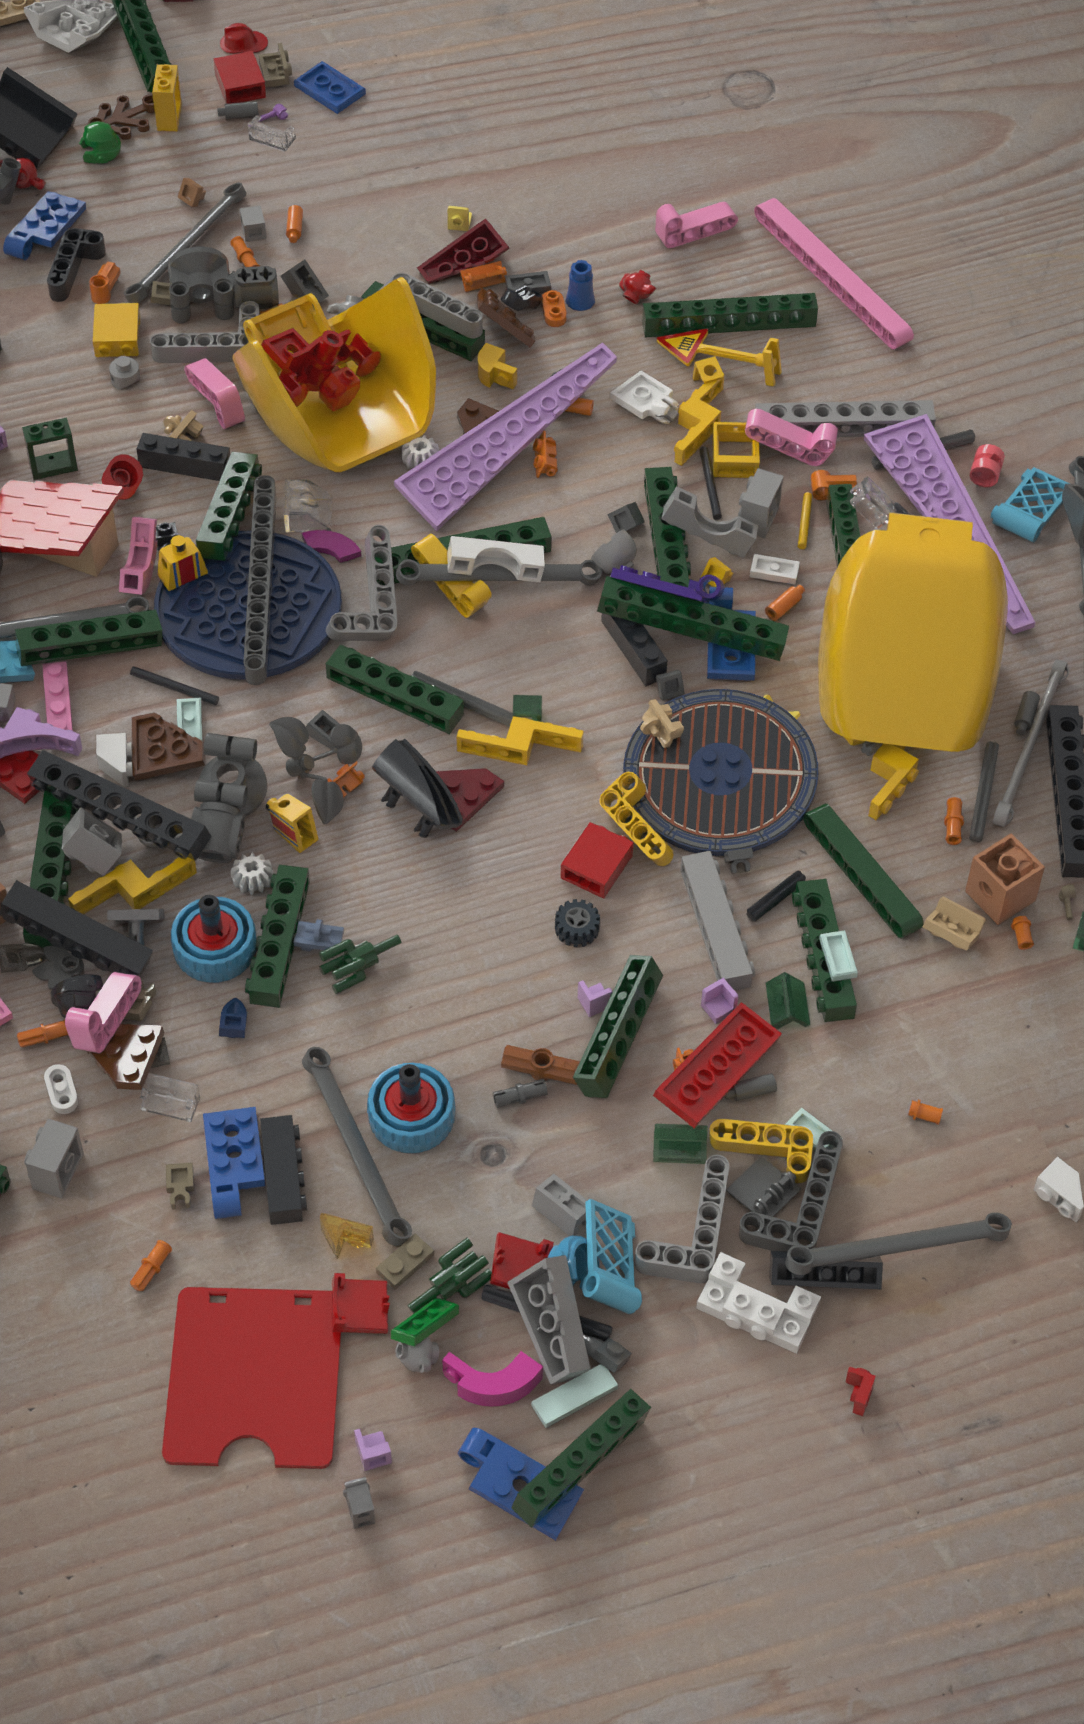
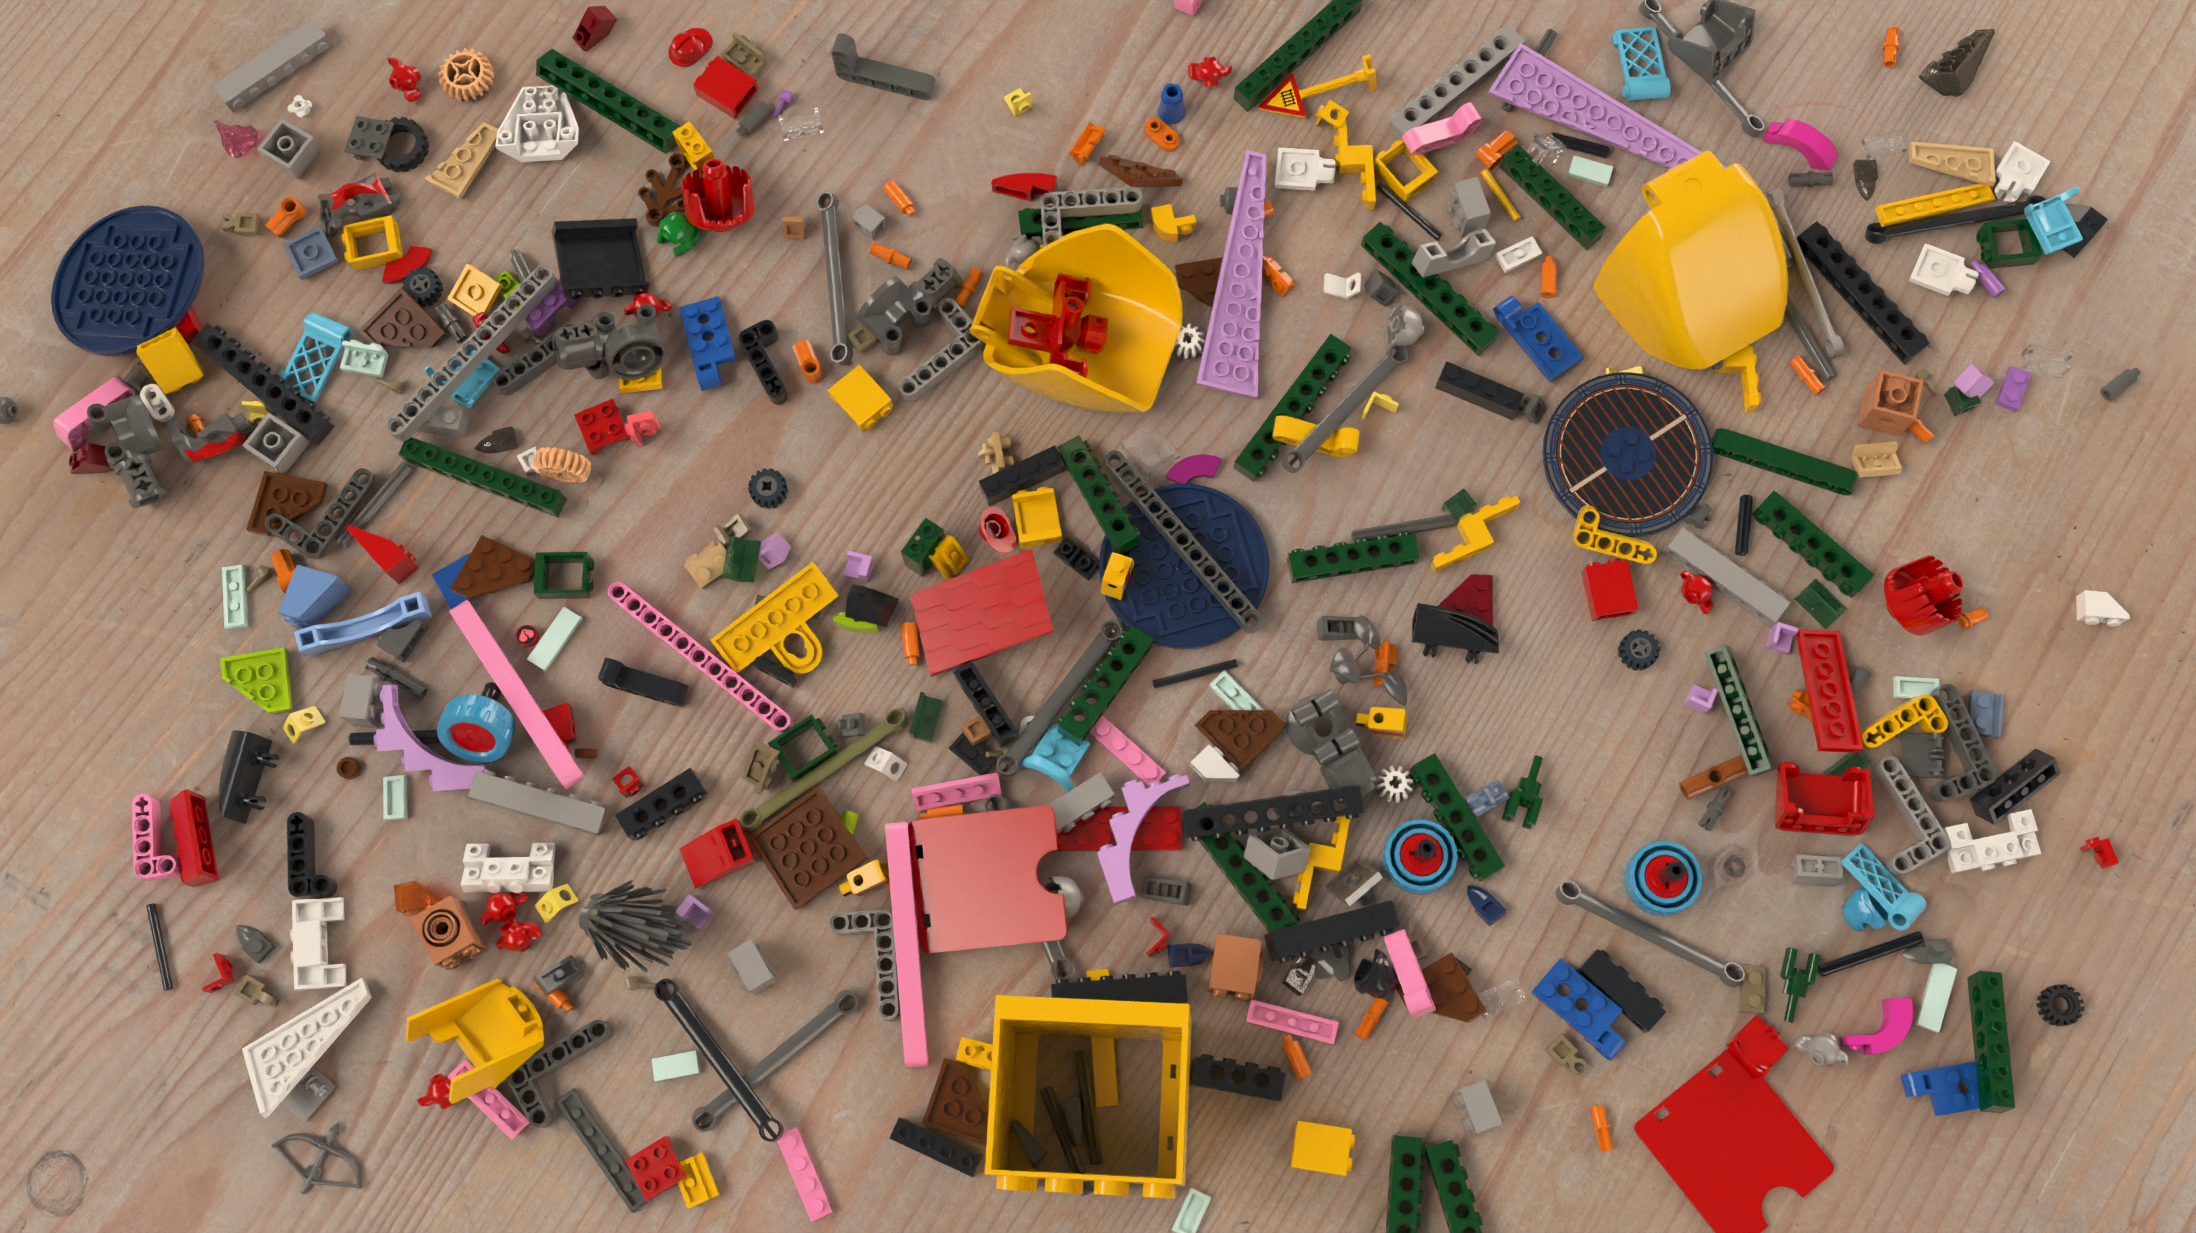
camera: 35 degrees left, 20 degrees up
(62, 465) = (949, 557): none -> yellow plate
(62, 1090) = (1423, 1049): white plate -> none
(124, 372) = (902, 432): light grey piece -> none
(141, 559) = (1076, 591): bright pink arch -> none
(148, 129) = (718, 197): none -> red piece
(166, 494) = (1037, 517): none -> yellow panel
(218, 391) = (990, 398): bright pink beam -> none
(302, 281) = (960, 249): dark grey arch -> none
(329, 87) = (801, 44): blue tile -> none
(341, 1230) = (1697, 1006): clear yellow slope -> none
(359, 1502) = (1885, 1182): flat silver piece -> none
(360, 131) = (878, 74): none -> dark grey beam
(373, 1450) = (1853, 1137): lavender panel -> none
(377, 593) = (1275, 491): light grey beam -> none
(391, 264) = (1024, 185): none -> red slope
(425, 1322) = (1815, 1028): green tile -> none
(470, 250) = (1061, 130): dark red wedge -> none
(515, 1256) = (1830, 934): red piece -> none
(521, 298) = (1136, 145): black piece -> none
(522, 560) = (1361, 388): white arch -> none
(536, 590) = (1382, 400): none -> light yellow bracket
(537, 280) = (1125, 126): dark grey plate -> none
(552, 1318) = (1893, 962): light grey wedge -> none
(590, 493) = (1341, 286): none -> white bracket
(619, 1150) = (1823, 801): none -> red windscreen
(658, 723) = (1563, 450): tan hips -> none
(676, 911) = (1697, 591): none -> red piece
(689, 1474) = (2071, 998): none -> black tyre
(693, 618) = (1522, 338): dark green brick -> none
(694, 591) = (1494, 330): dark purple hinge -> none
(718, 569) = (1484, 289): yellow tile -> none
(838, 955) = (1834, 546): light aqua tile -> none
(860, 1199) = (1986, 712): none -> sand blue plate
(881, 1047) = (1923, 596): none -> red piece
(897, 1243) = (2047, 734): dark grey piece -> none
(987, 465) = (1588, 53): coral wheel -> none

